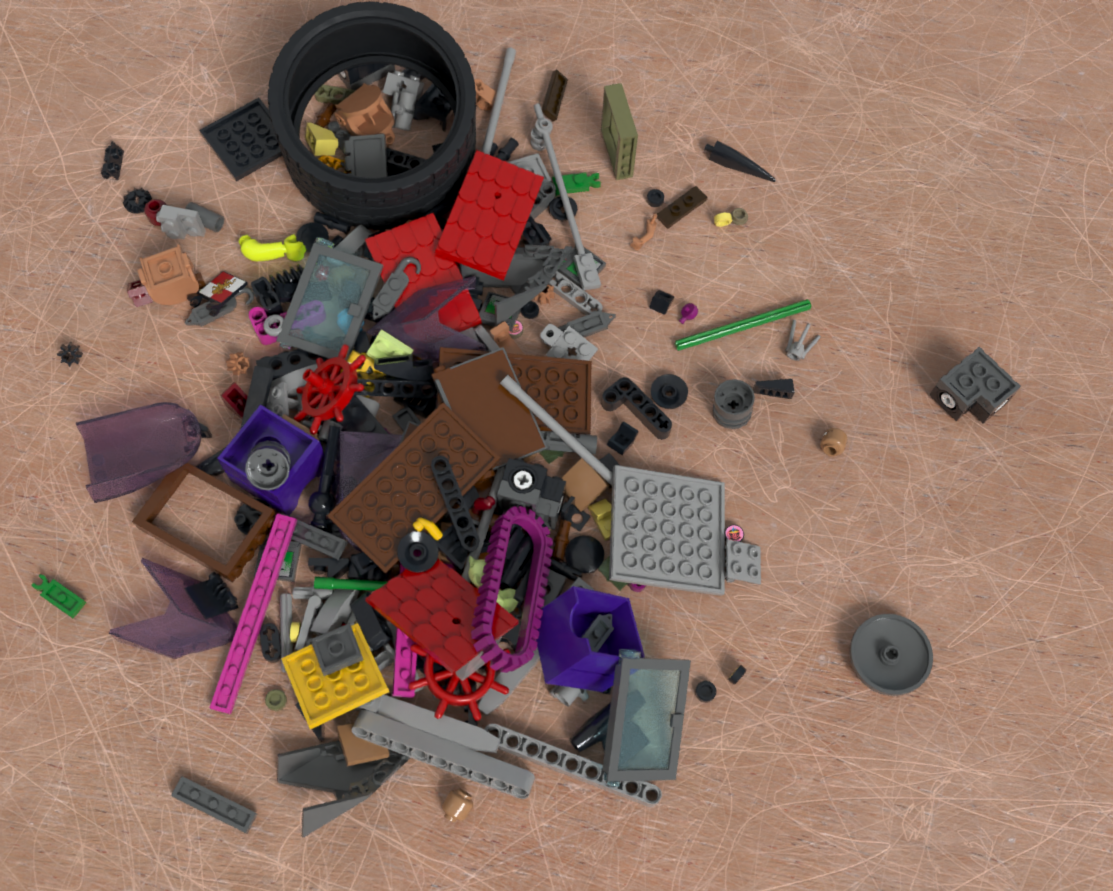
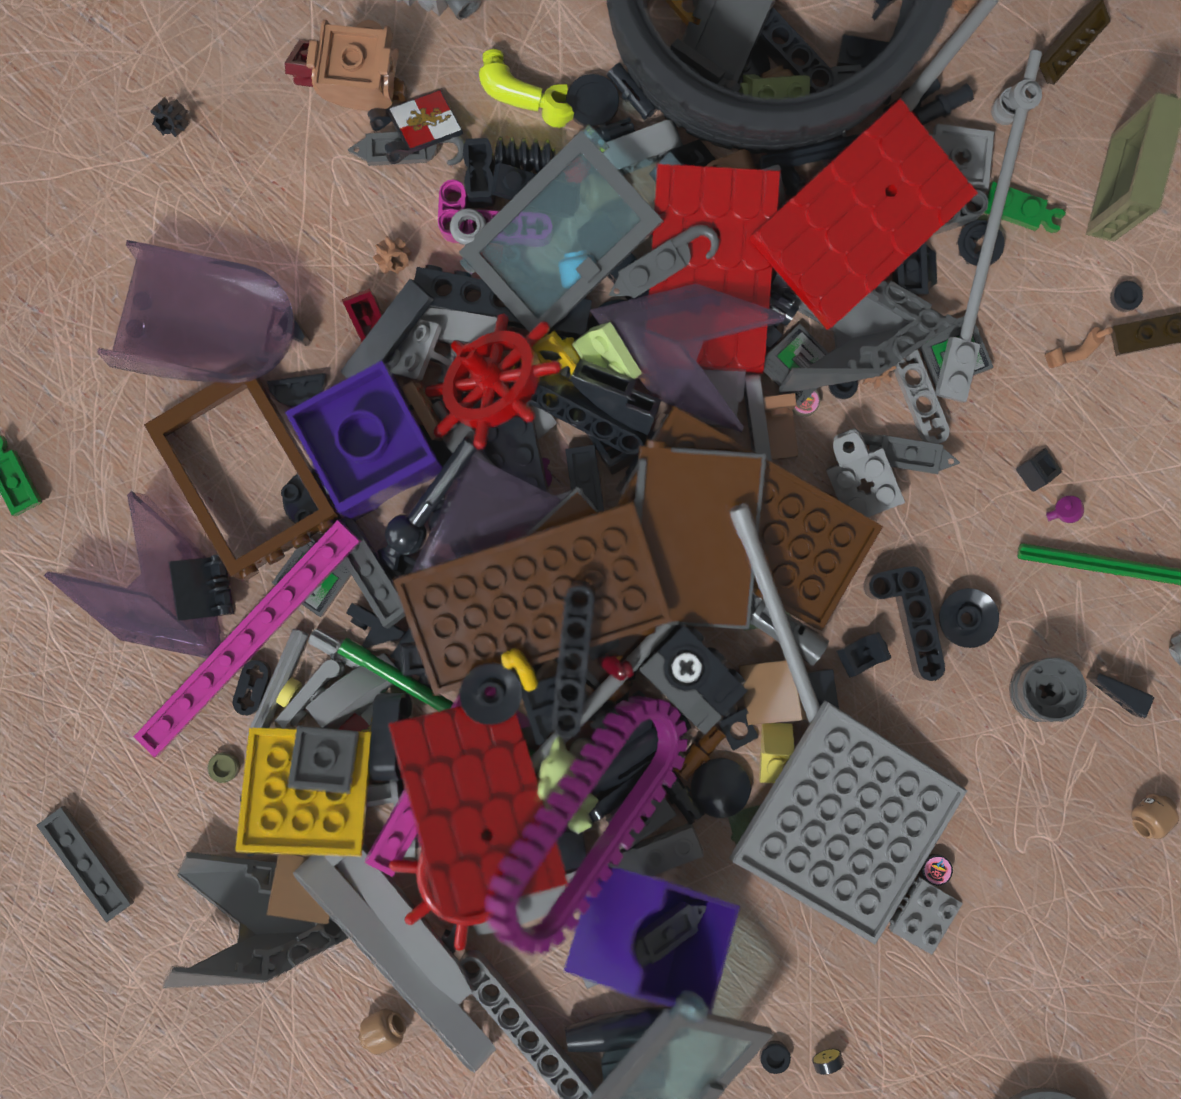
camera: 30 degrees right, 20 degrees up
(266, 476) = (344, 469): dark grey wheel -> none

